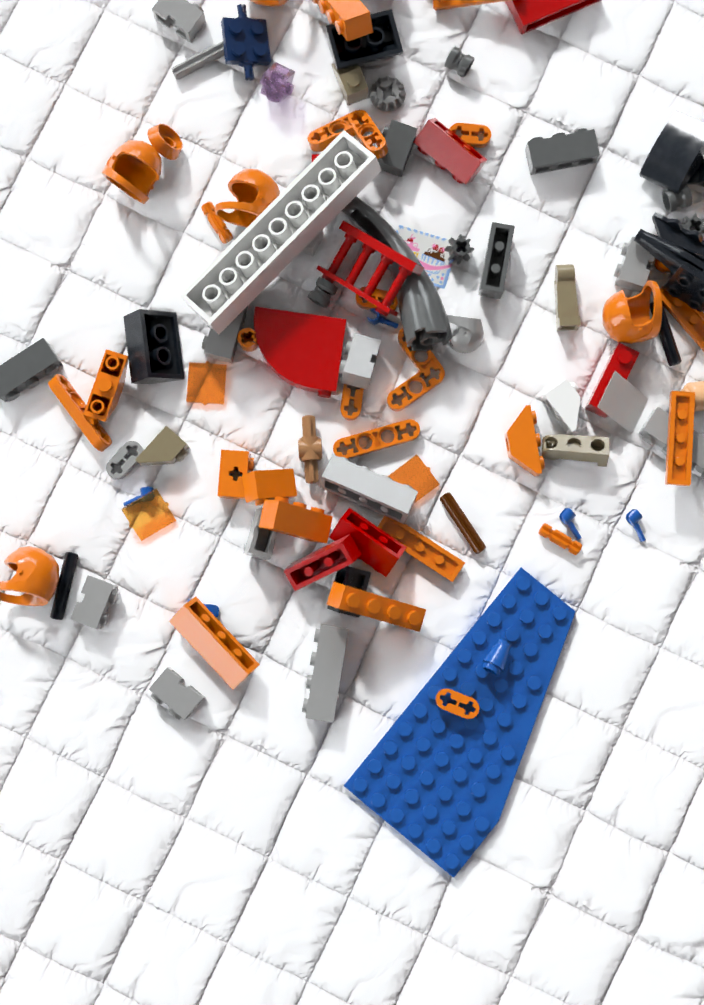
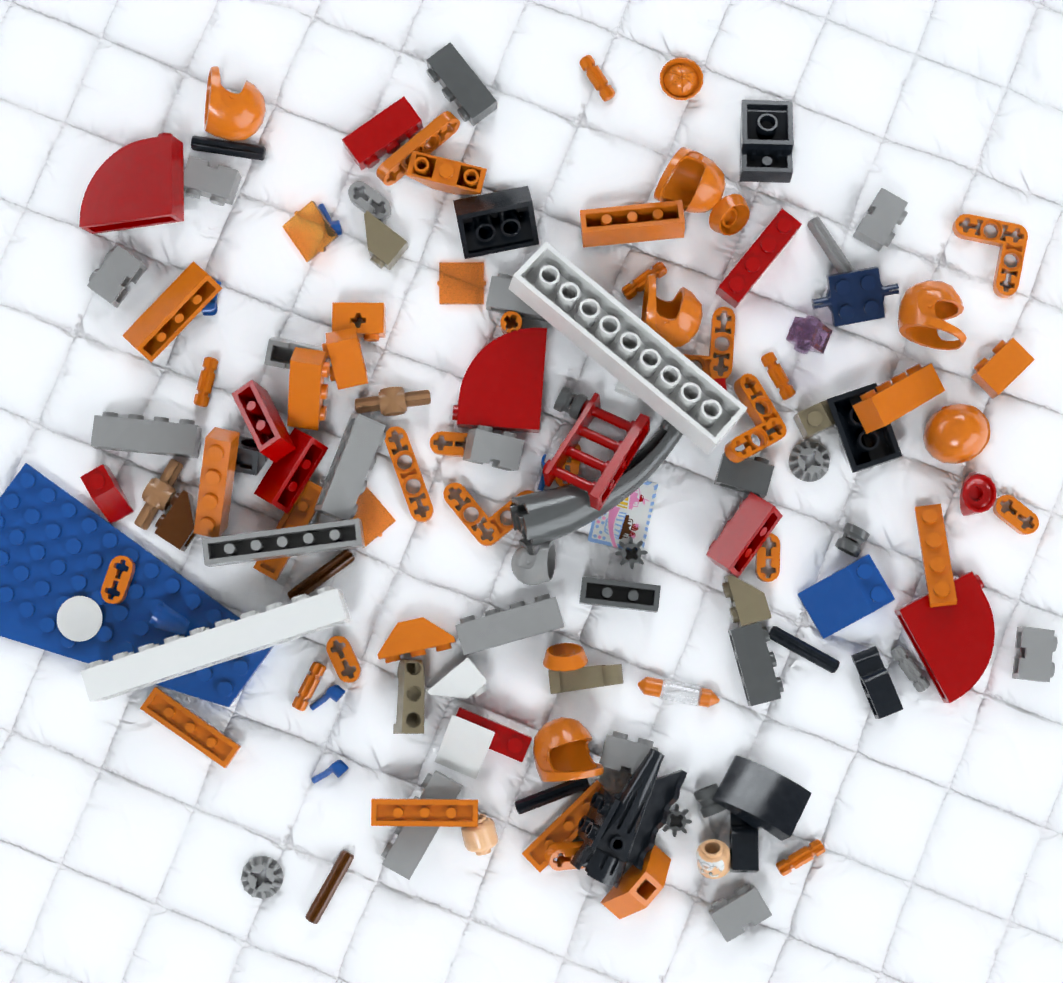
camera: 85 degrees right, 0 degrees up
(28, 250) = (597, 78): none -> orange axle
(36, 176) = (681, 78): none -> orange hat
(64, 443) = (383, 134): none -> red brick
(95, 669) = (136, 187): none -> red brick
(100, 107) = (766, 141): none -> black slope
(166, 226) = (632, 223): none -> orange brick
(205, 120) = (758, 258): none -> red brick
(280, 617) = (206, 381): none -> orange axle
(294, 171) = (709, 362): none -> orange beam
(310, 114) = (778, 375): none -> orange axle
(377, 711) = (107, 493): none -> red slope
(380, 664) = (158, 494): none -> medium nougat axle
(408, 645) = (179, 522): none -> reddish brown slope
(434, 549) = (283, 542): none -> light grey brick
(489, 741) = (79, 618): none -> white sticker
(507, 70) = (846, 596): none -> blue slope
(509, 154) = (747, 602): none -> dark tan slope
(517, 358) = (510, 625): none -> light grey brick
(524, 614) = (216, 645): none -> white brick
(535, 501) = (338, 662): none -> orange beam
(549, 311) = (565, 657): none -> orange hat
(551, 110) = (803, 649): none -> black axle
(572, 24) = (910, 668): none -> light grey axle
(582, 219) = (678, 692): none -> piece
(584, 51) = (876, 683): none -> black piece
(591, 645) = (190, 727): none -> orange plate

